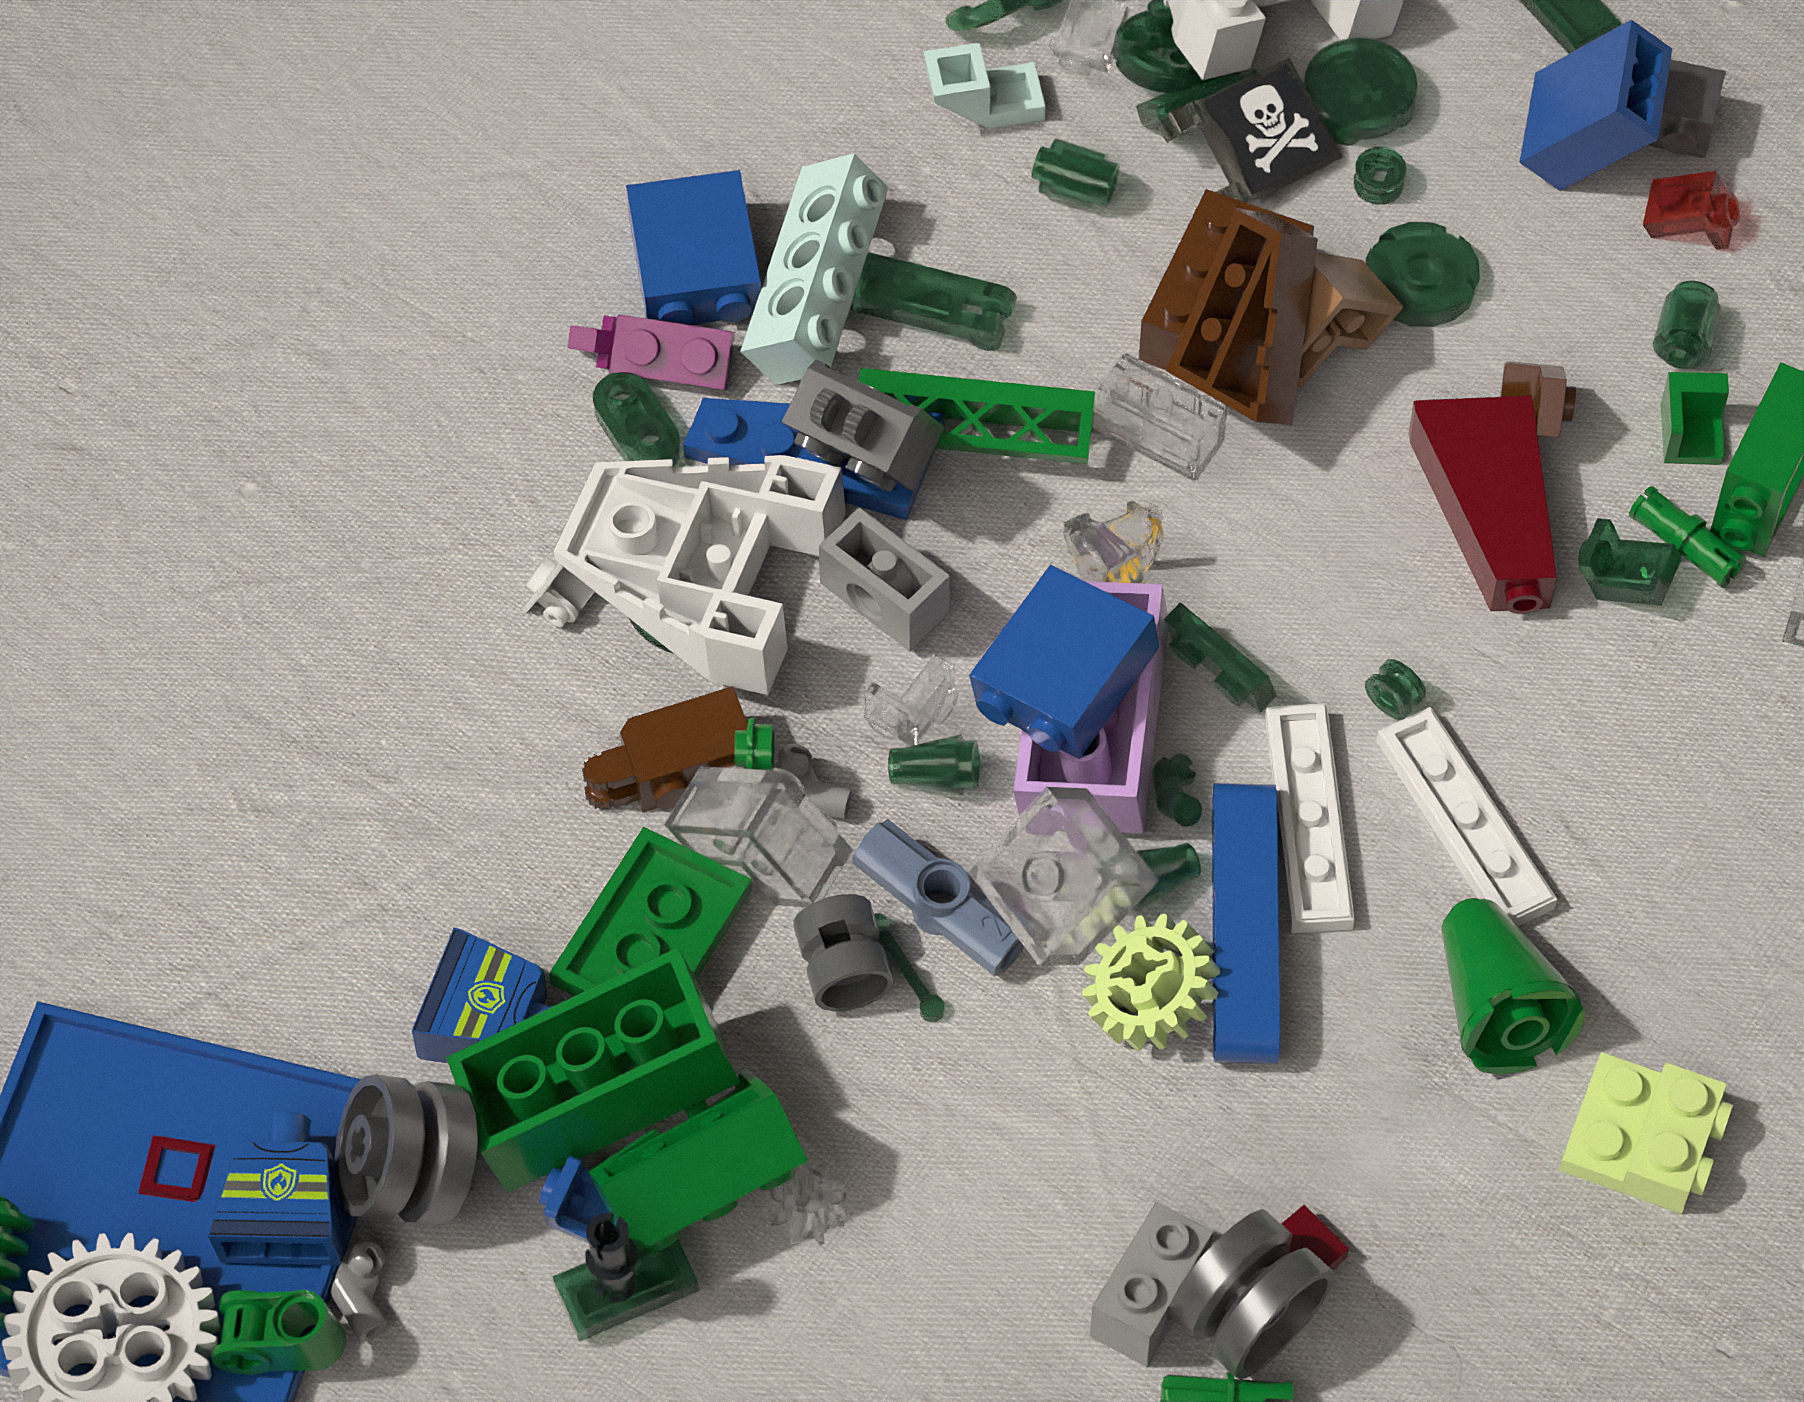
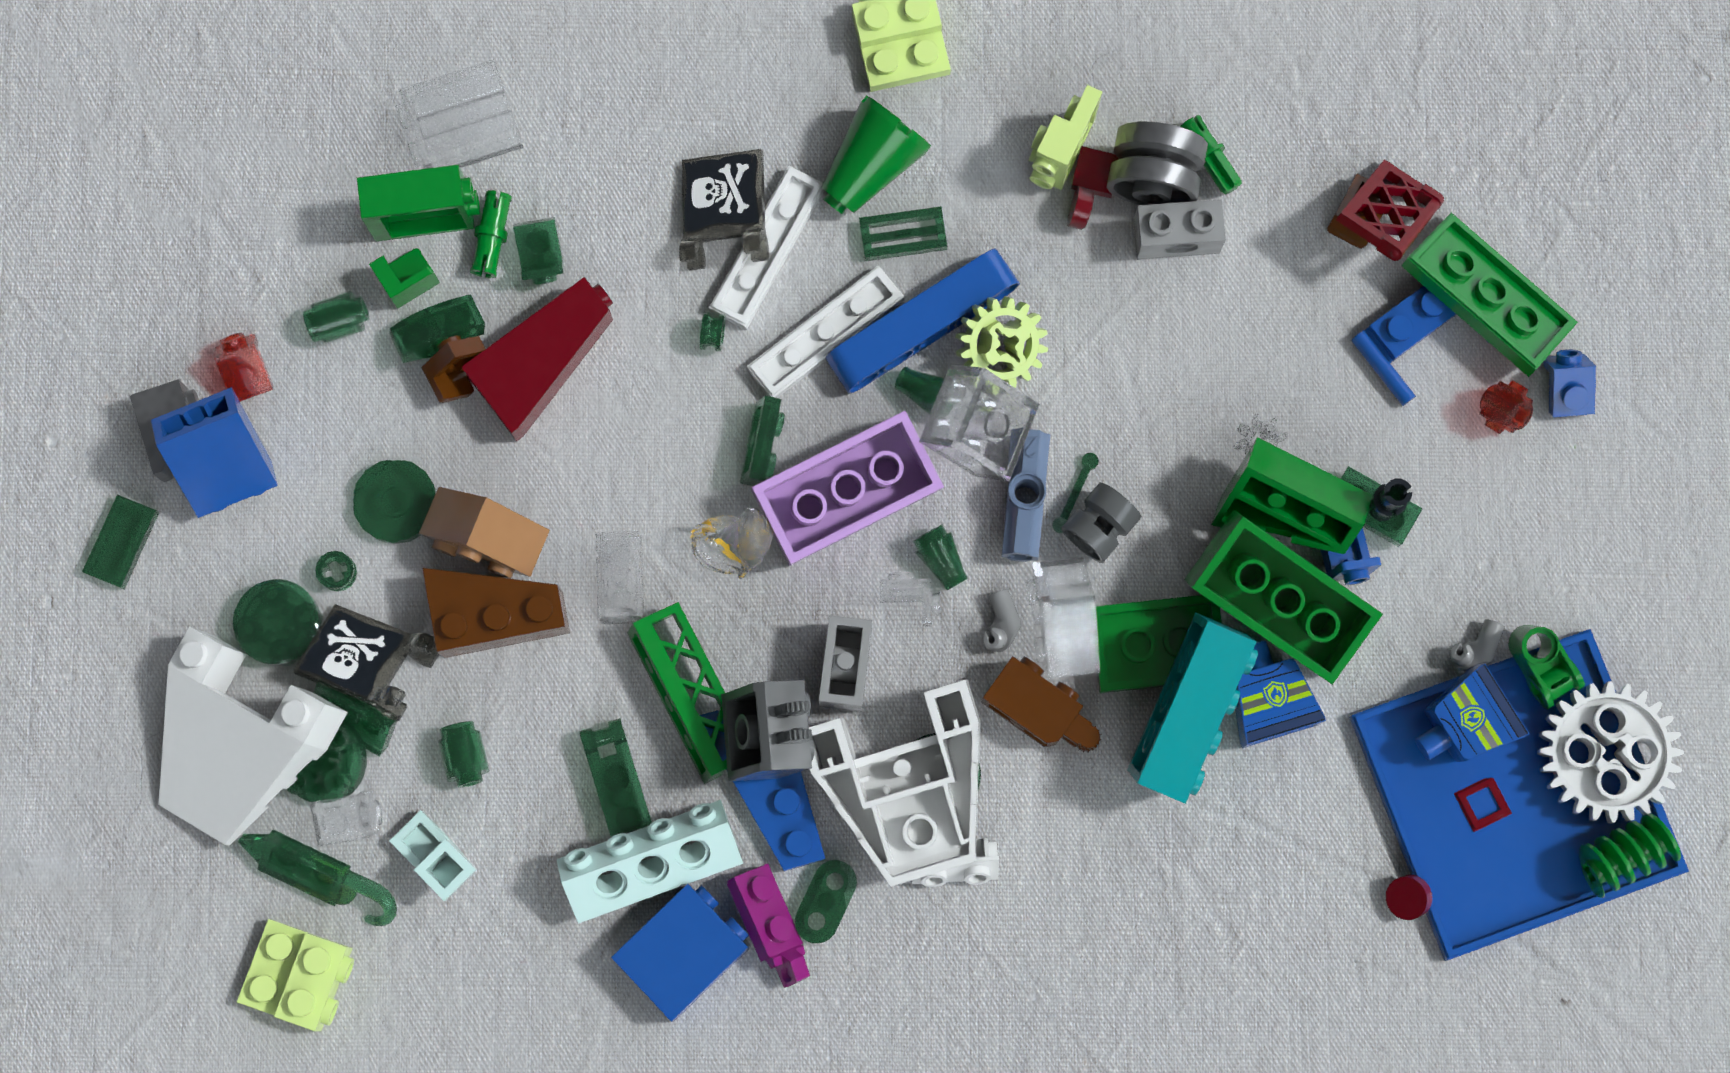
camera: 125 degrees left, 20 degrees up
(140, 1005) = (1408, 897): none -> dark red tile
(405, 1150) = (1403, 663): flat silver wheel -> none
(537, 874) = (1192, 708): none -> teal brick
(755, 746) = (1021, 648): green plate -> none
(1064, 662) = (853, 501): blue brick -> none
(1171, 800) = (869, 413): clear green arm -> none
(1251, 319) = (535, 547): reddish brown wedge -> none
(1264, 1190) = (1080, 208): none -> dark red tile
(1355, 1199) = (1059, 144): none -> yellowish green plate
(1357, 1020) = (907, 248): none -> clear green tile
(1548, 790) = (723, 202): none -> flag
(1602, 414) = (424, 330): none -> clear green slope

